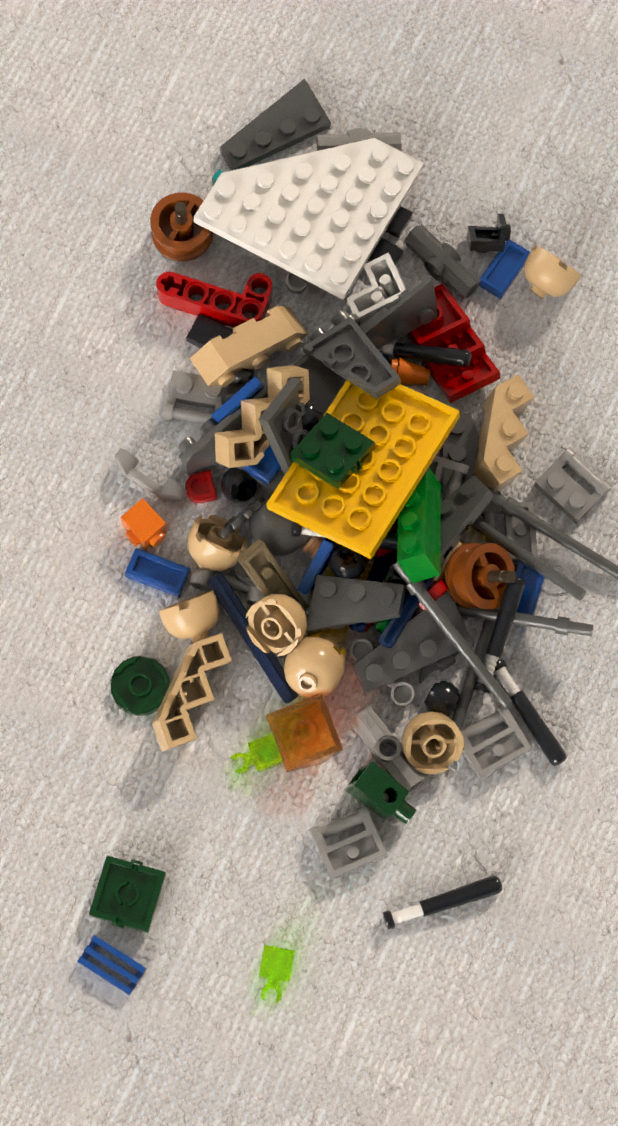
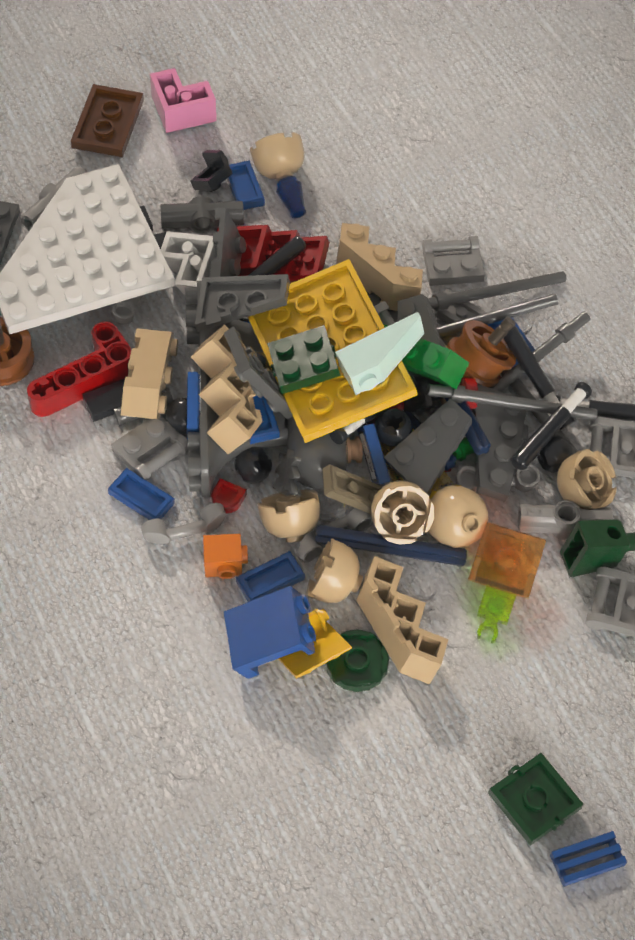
camera: 50 degrees left, 15 degrees down
(101, 606) = (268, 630): none -> blue panel
(118, 642) = (328, 646): none -> yellow hinge
(149, 427) = (141, 495): none -> blue tile
(371, 503) = (377, 355): none -> light aqua slope
(439, 678) = (540, 438): none -> black piece
(472, 115) = (107, 120): none -> reddish brown plate
(523, 313) = (291, 195): none -> clear blue cone
(532, 156) = (181, 105): none -> bright pink brick

